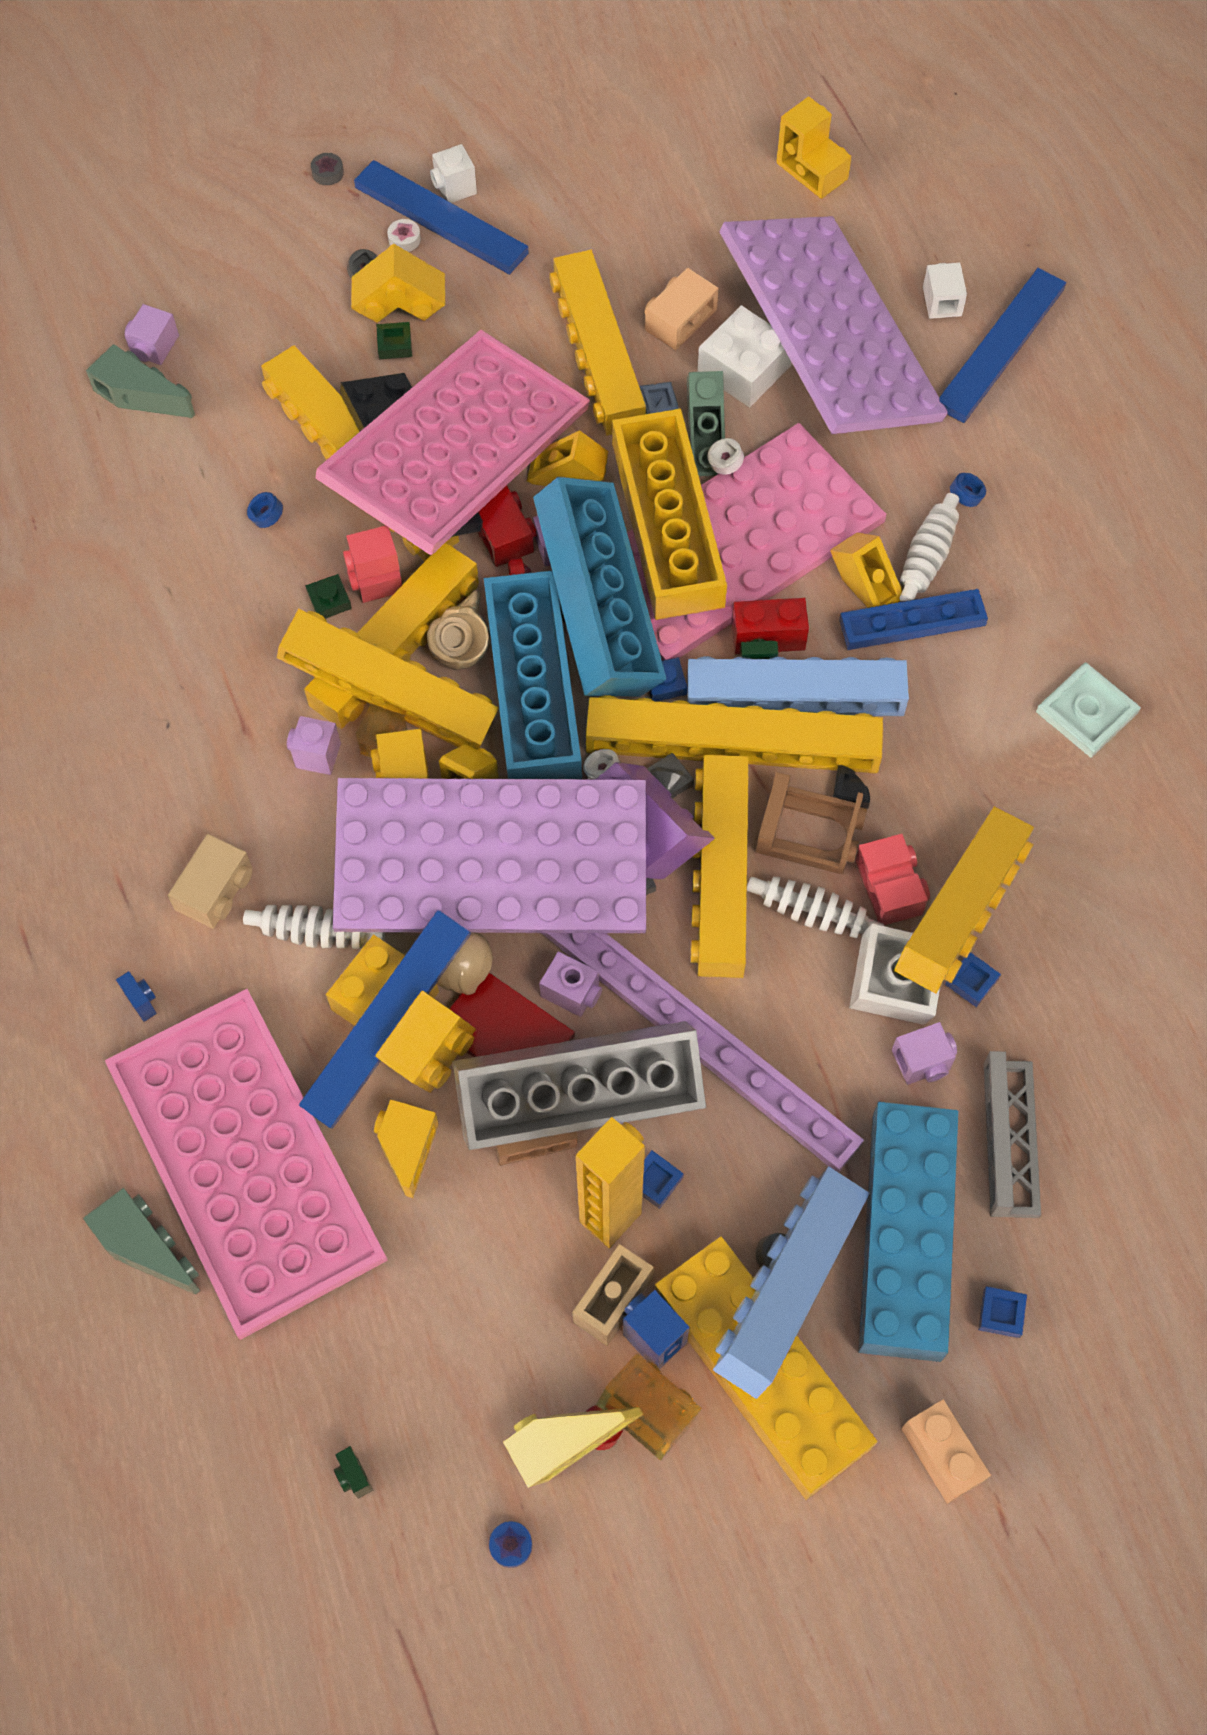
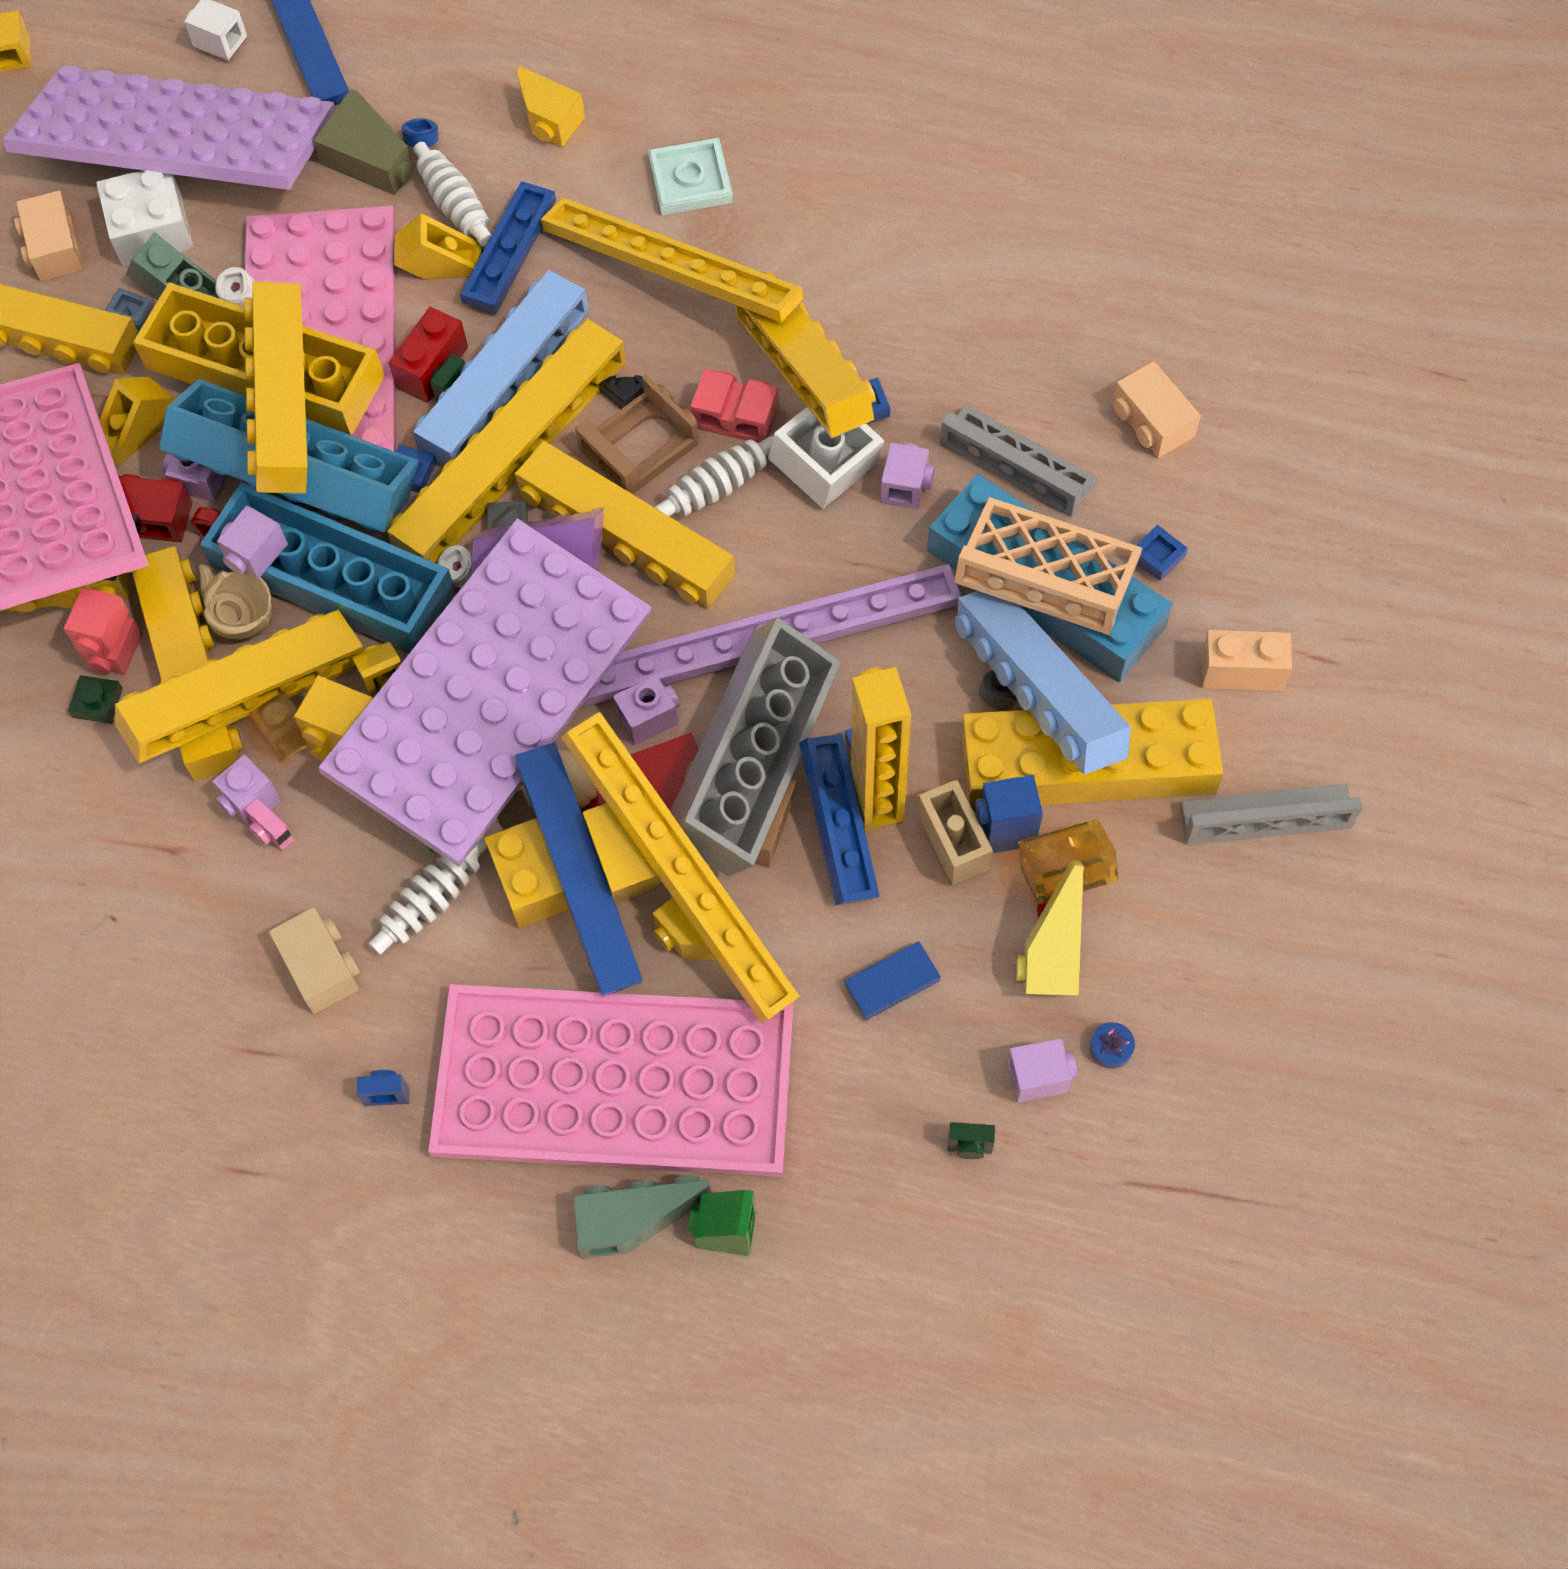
camera: 55 degrees left, 0 degrees up
(168, 1318) = (724, 1222): none -> green slope
(298, 778) = (268, 826): none -> bright pink plate
(423, 1095) = (680, 867): none -> yellow plate
(445, 1495) = (1041, 1070): none -> lavender brick
(458, 1325) = (892, 980): none -> blue tile
(500, 610) = (251, 542): none -> lavender brick
(544, 1213) = (839, 819): none -> blue plate
(631, 538) = (278, 388): none -> yellow brick
(813, 1558) = (1268, 814): none -> light grey fence
(873, 1236) = (1038, 586): none -> light nougat fence
(922, 458) = (363, 146): none -> olive slope
(984, 747) = (673, 259): none -> yellow plate
(1063, 564) = (550, 107): none -> yellow slope
(1143, 1225) = (1155, 409): none -> light nougat brick

